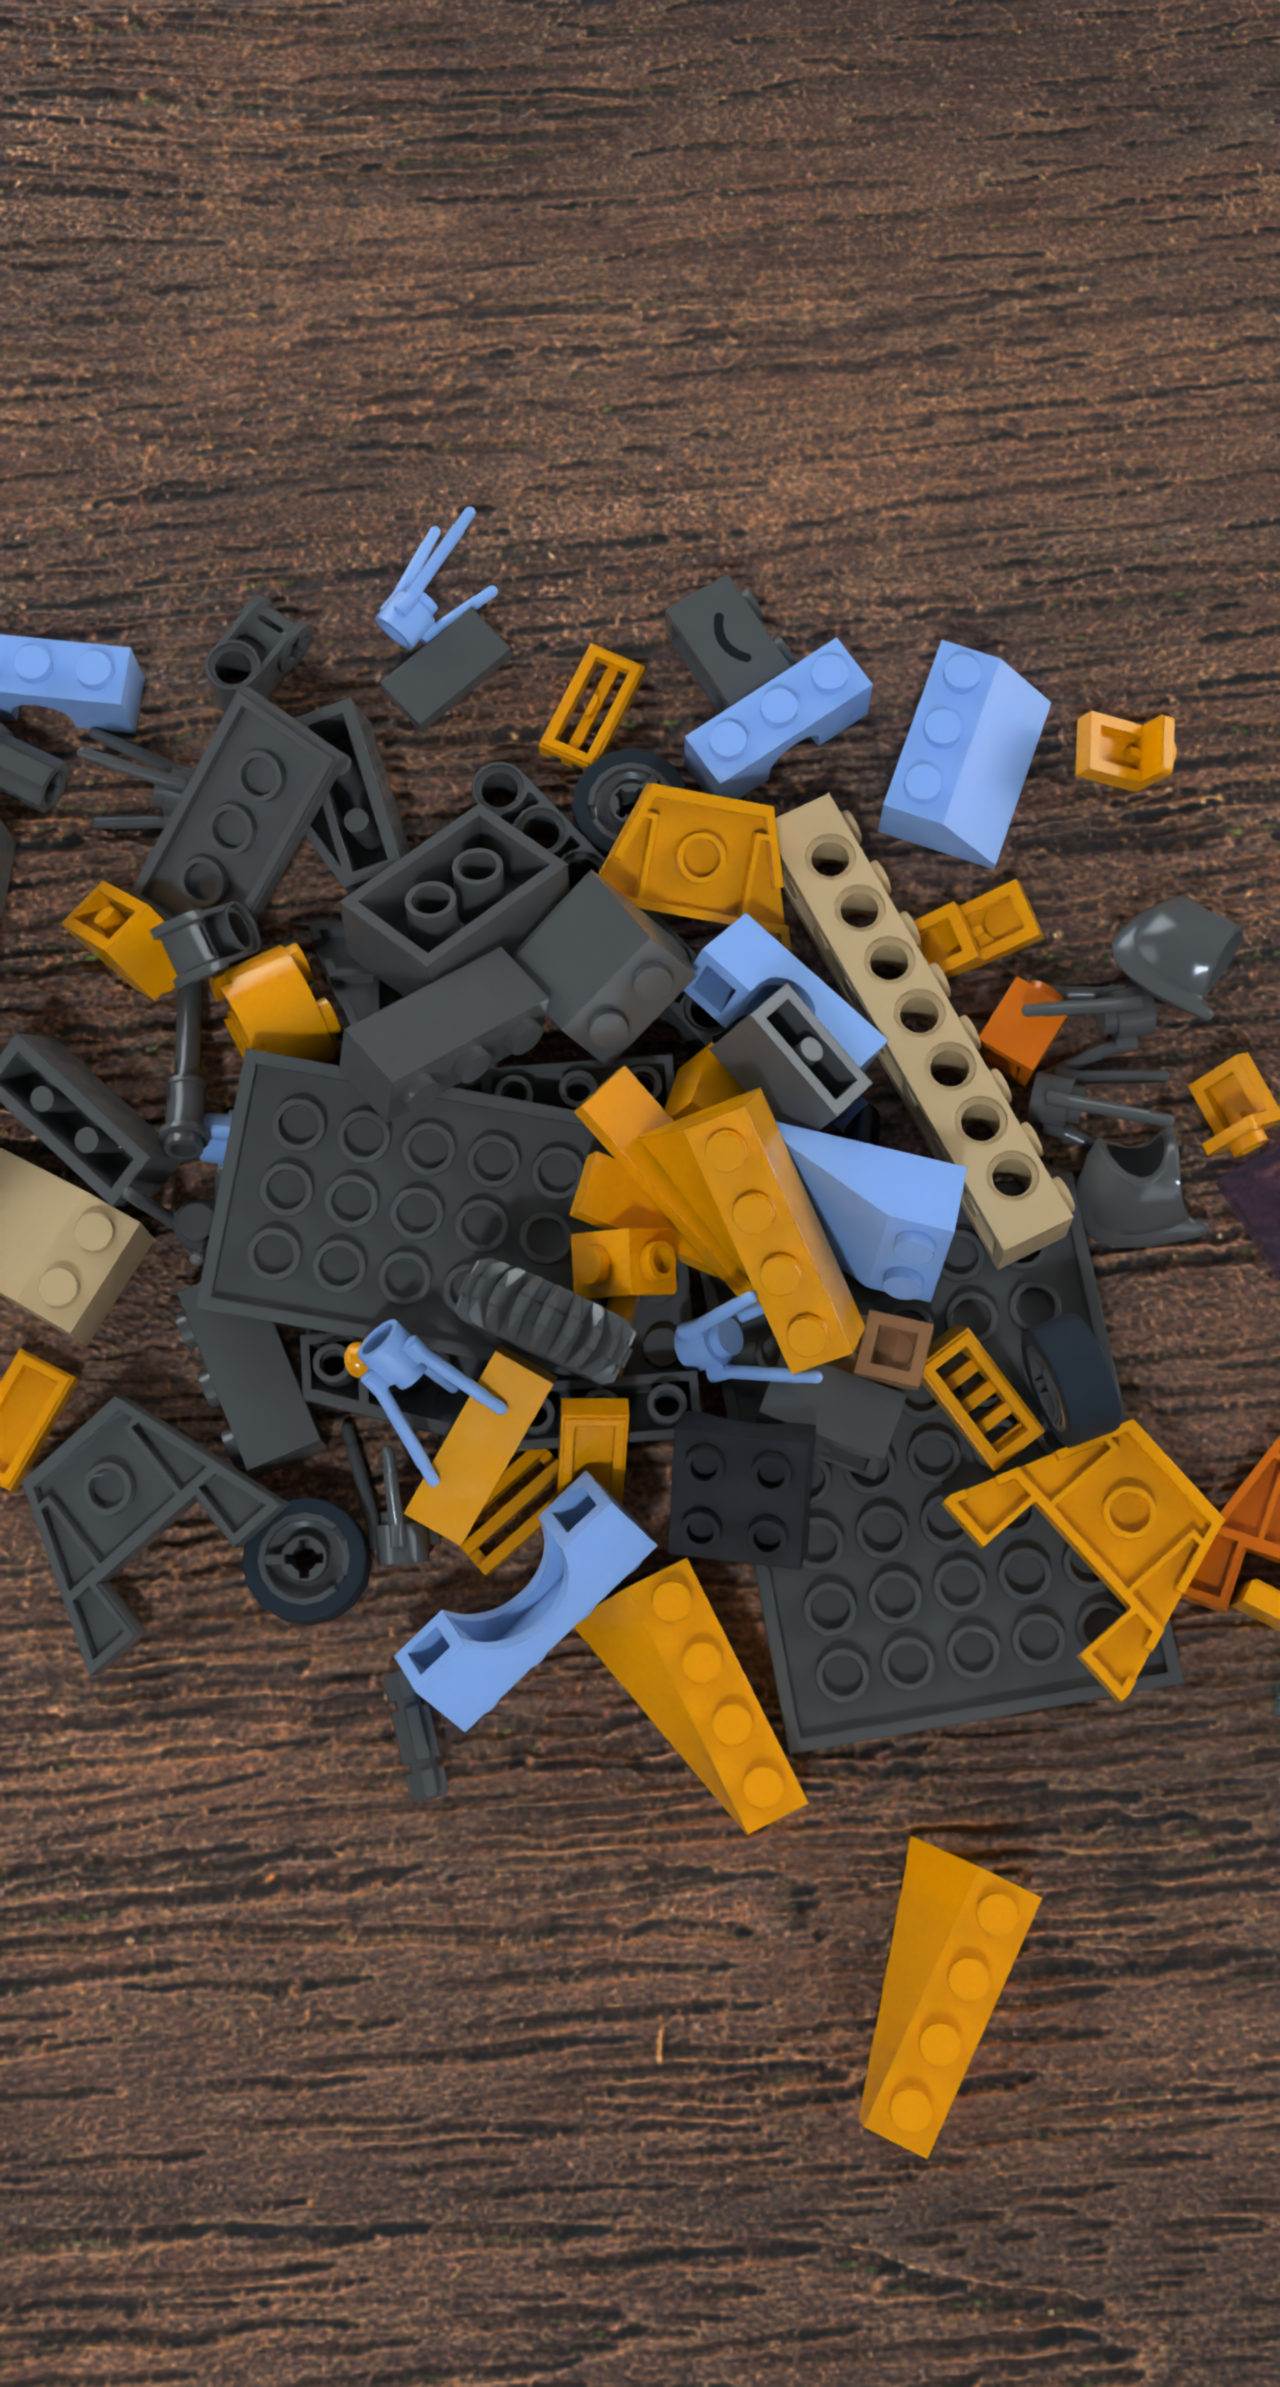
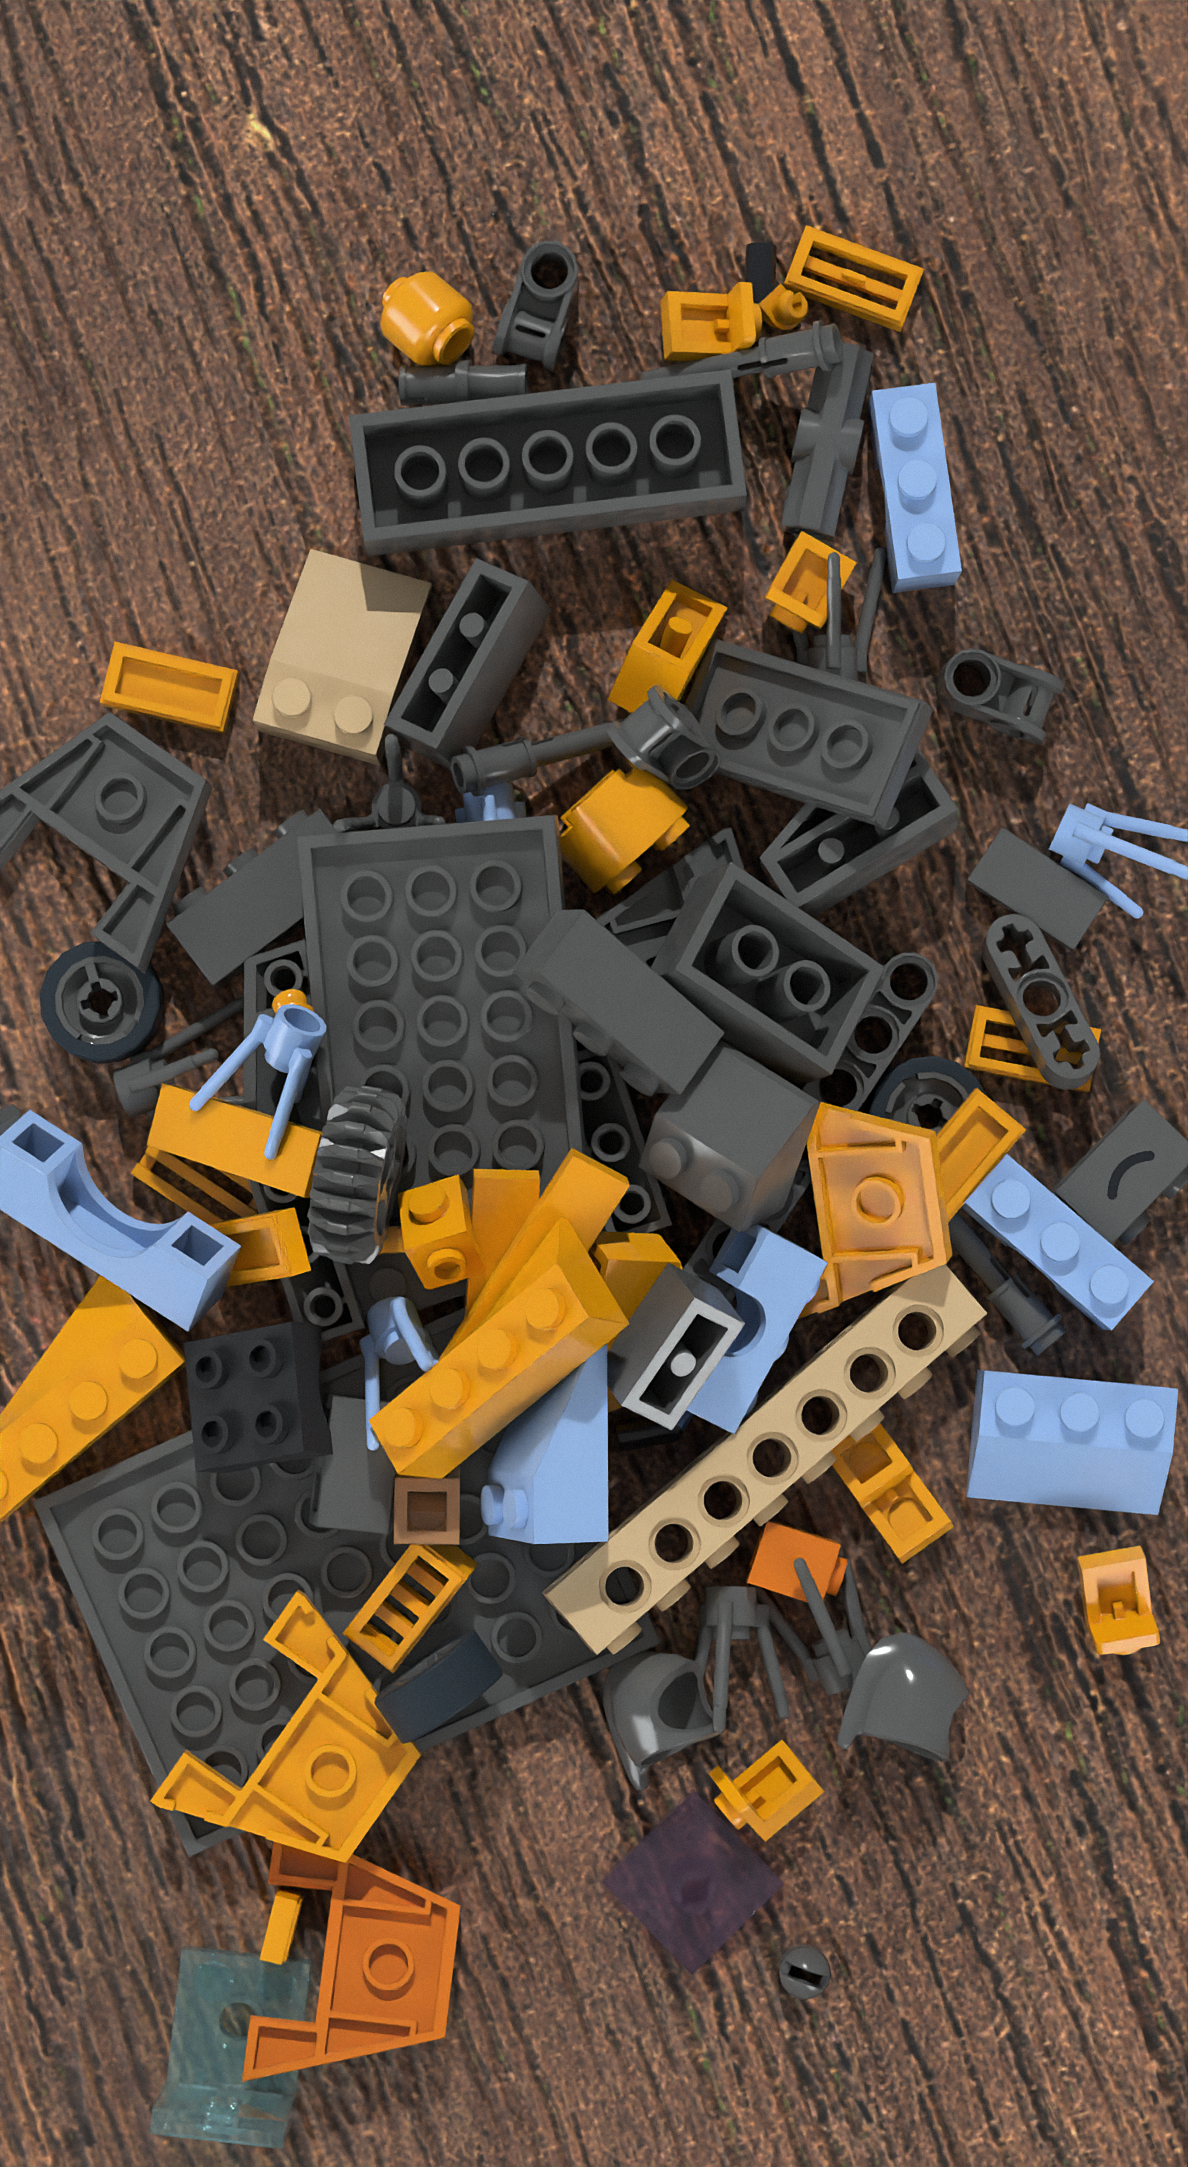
camera: 70 degrees right, 10 degrees up
(101, 798) = (801, 584): none -> light orange bracket
(571, 697) = (1075, 1035): none -> dark grey beam
(666, 759) = (972, 1146): none -> light orange tile
(823, 775) = (1009, 1292): none -> dark grey pin

